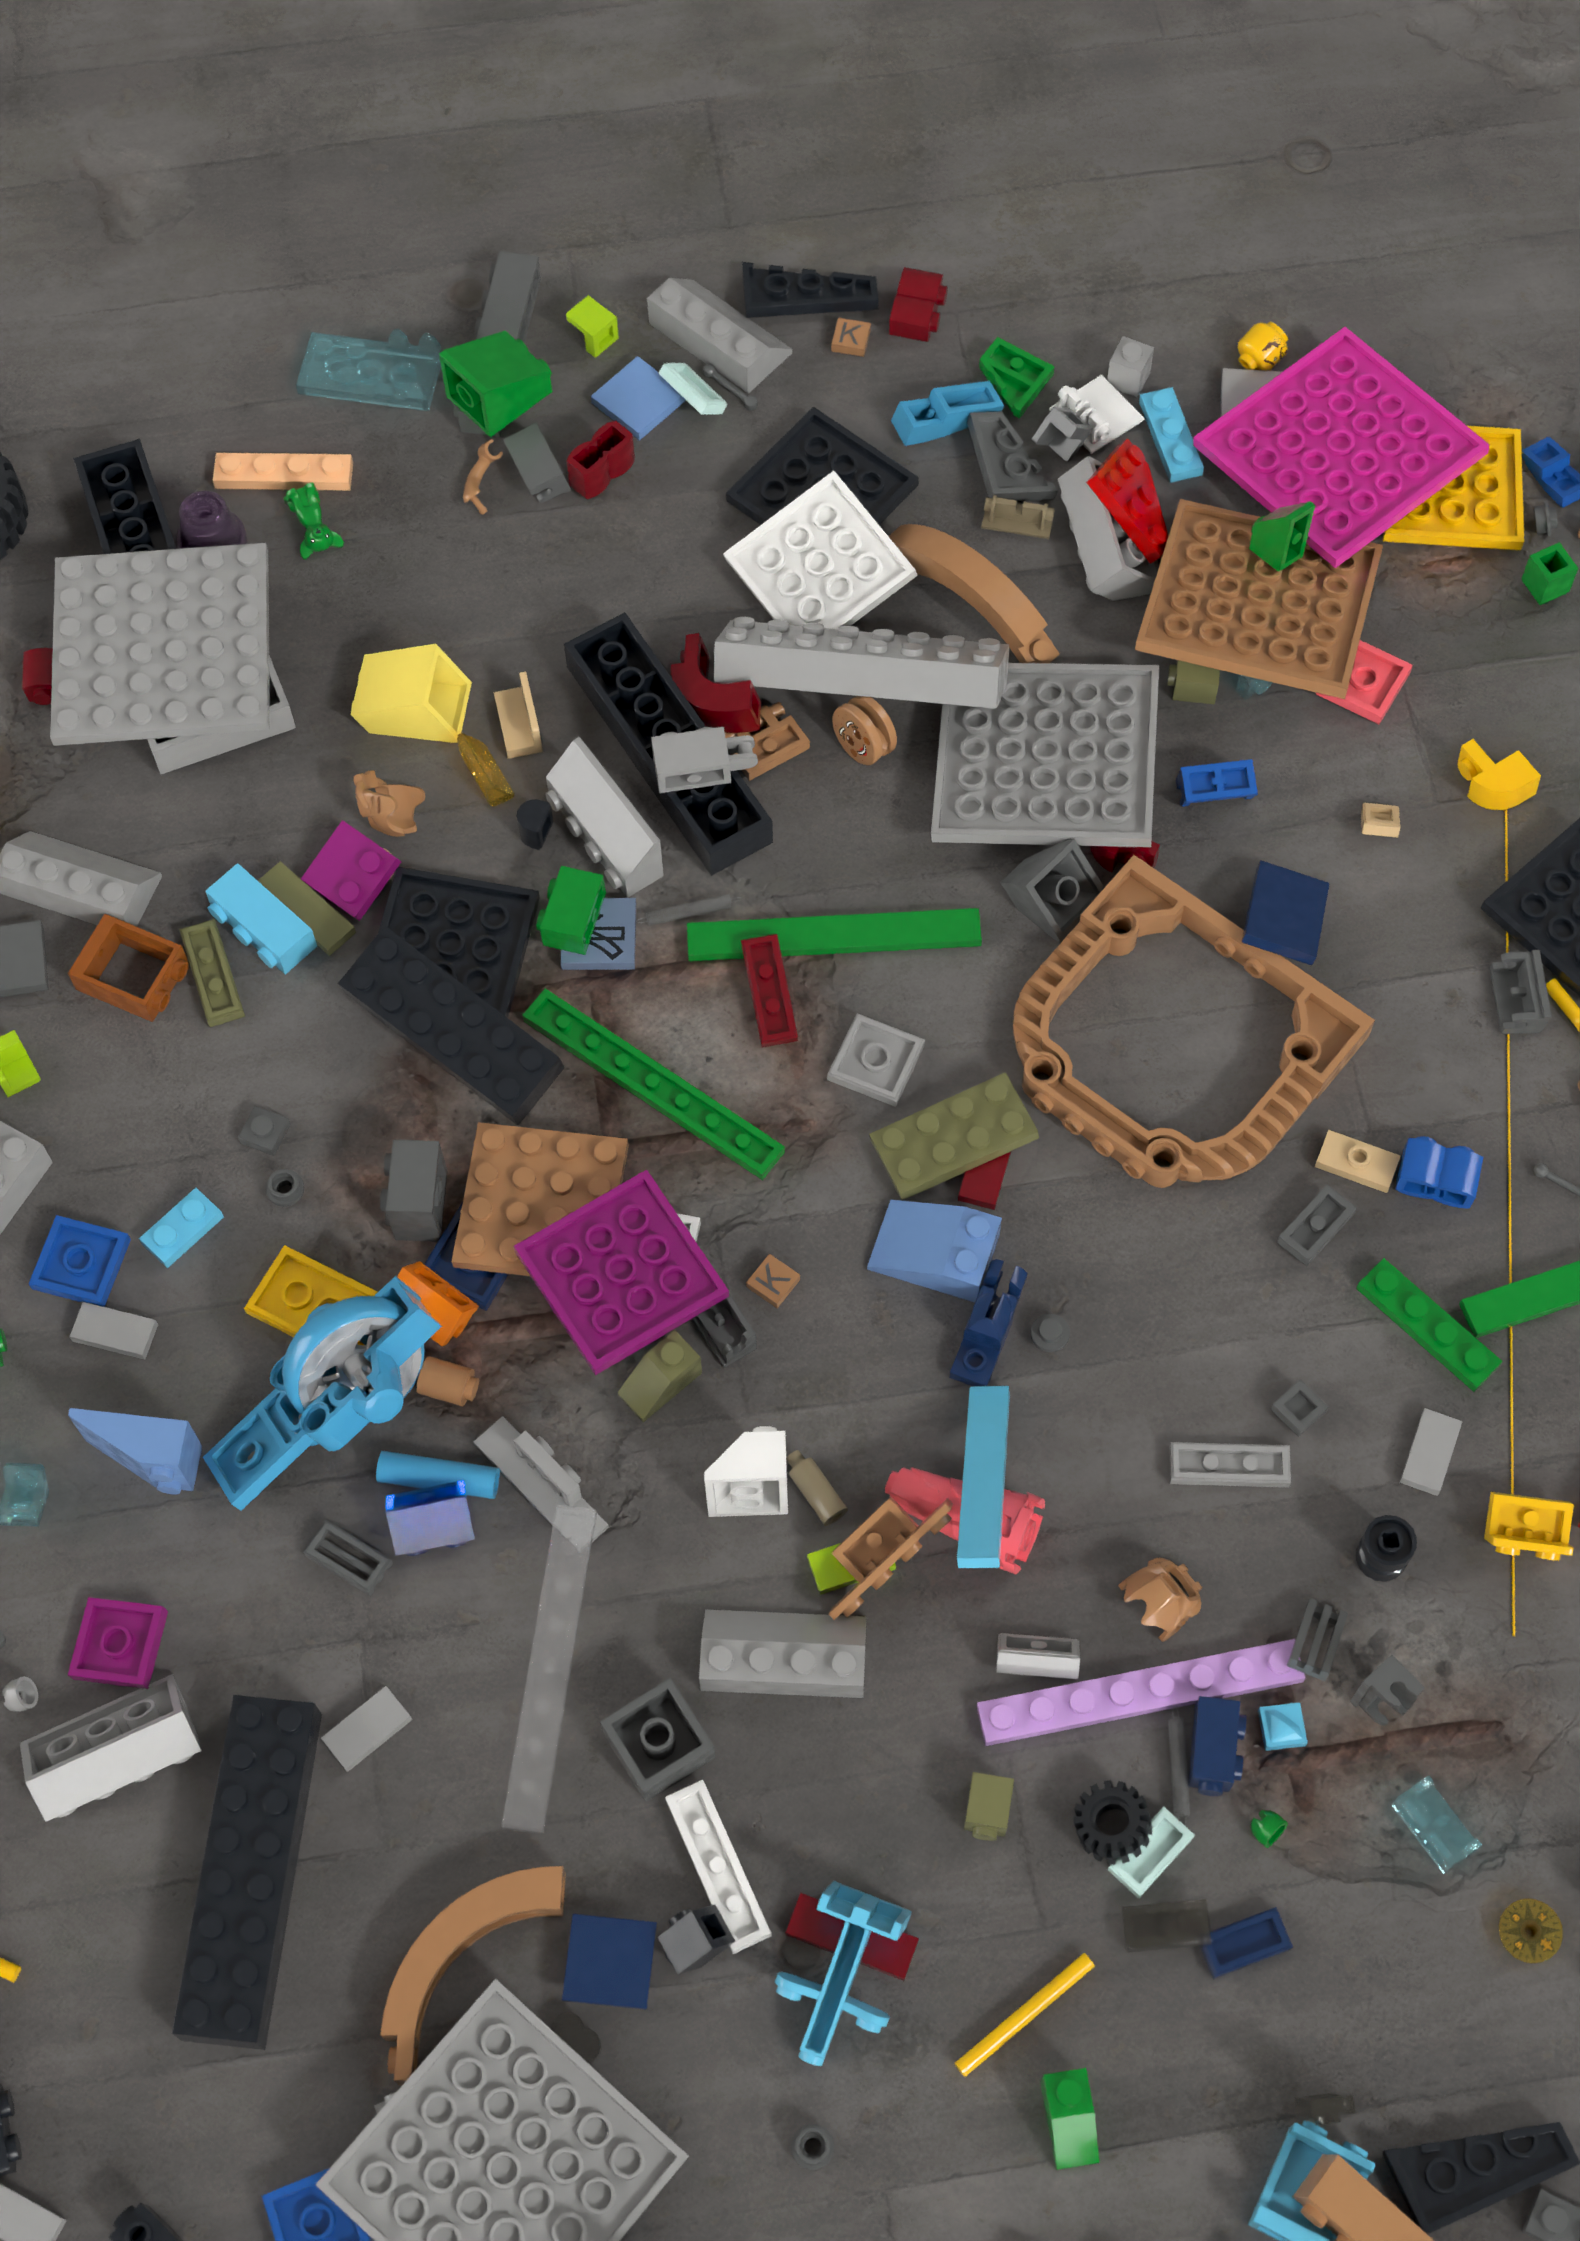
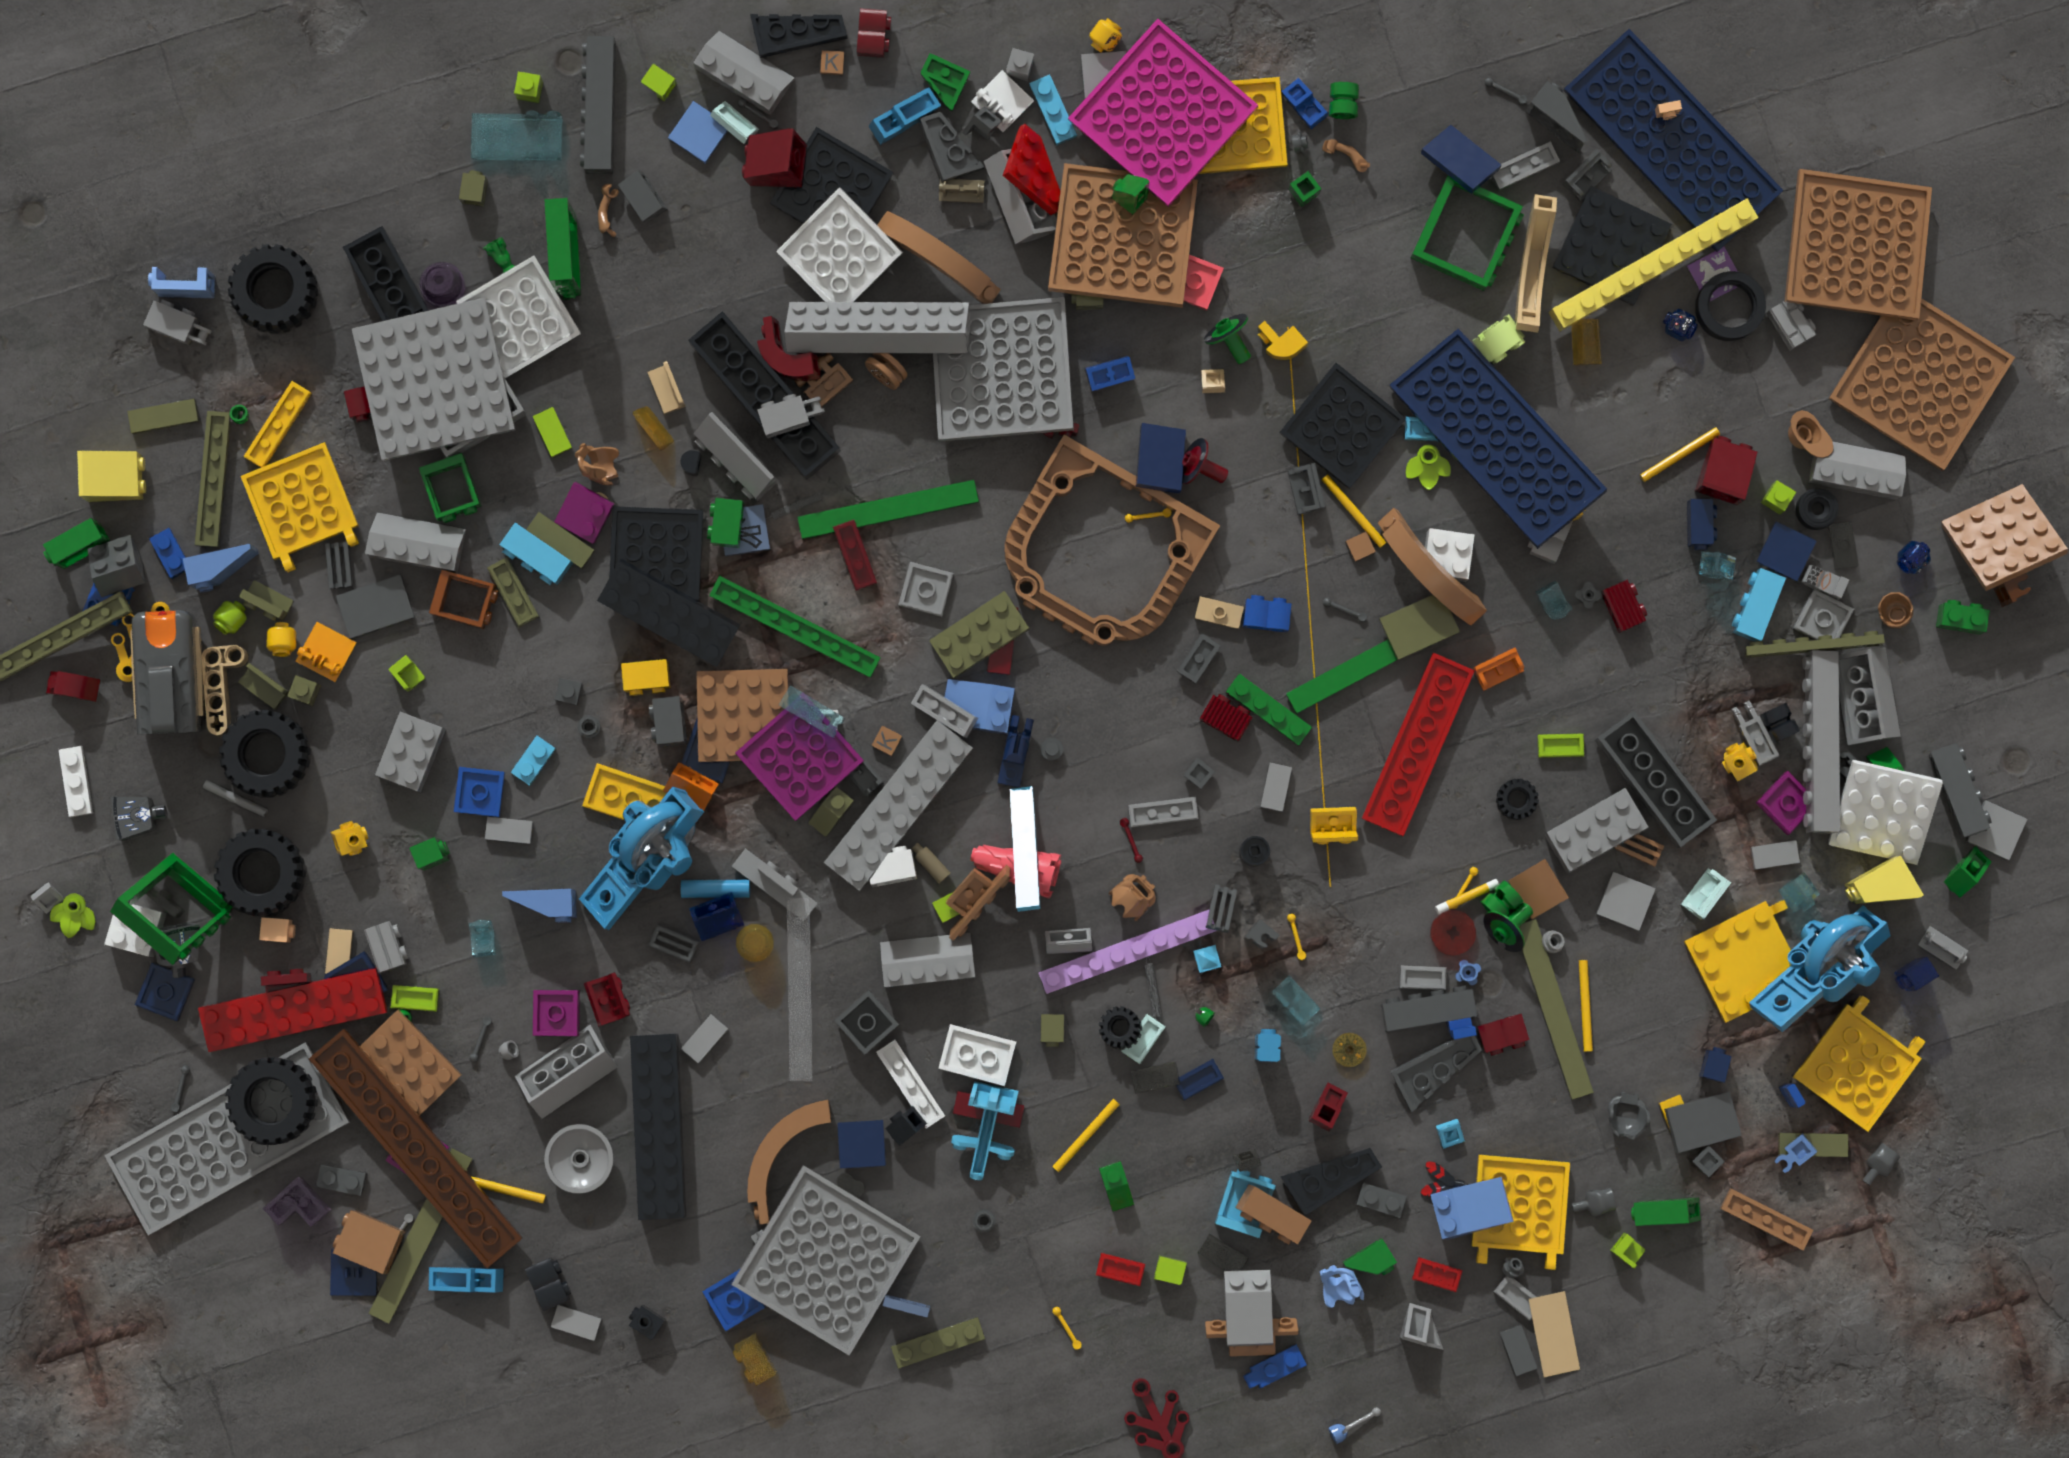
camera: 15 degrees left, 20 degrees up
(72, 1886) = (562, 1158): none -> light grey dish
(144, 778) = (443, 466): none -> green window
(211, 1631) = (607, 999): none -> dark red bracket
(282, 471) = (476, 224): light nougat plate -> none
(289, 423) = (473, 188): none -> olive brick
(324, 588) = (524, 315): none -> white plate
(328, 757) = (552, 432): none -> lime tile
(391, 1116) = (645, 676): none -> yellow brick
(401, 307) = (528, 87): none -> lime brick
(402, 478) = (562, 248): none -> green window
(411, 694) = (596, 384): light yellow slope -> none
(447, 1381) = (710, 833): medium nougat brick -> none
(486, 1571) = (754, 942): none -> clear yellow piece
(494, 379) = (607, 148): green slope -> none
(601, 459) = (680, 195): dark red brick -> none
(654, 1195) = (810, 711): none -> clear light blue plate
(745, 431) = (775, 159): none -> dark red slope
(777, 1378) = (898, 805): none -> light grey brick
(846, 1832) = (977, 1055): none -> white plate
(878, 1241) = (944, 710): none -> light grey plate
(1054, 888) = (1019, 461): dark grey slope -> none
(1161, 1472) = (1125, 823): none -> dark red hinge
(1214, 1745) = (1171, 977): dark blue brick -> none
(1284, 1002) = (1166, 513): none -> yellow hinge
(1342, 923) = (1196, 462): none -> dark red piece
(1355, 1323) = (1225, 717): none -> dark red brick
(1382, 1895) = (1267, 1045): none -> dark azure brick
(1417, 762) = (1227, 331): none -> green piece
(1452, 1746) = (1301, 954): none -> yellow hinge
(1485, 2030) = (1328, 1107): none -> dark red brick

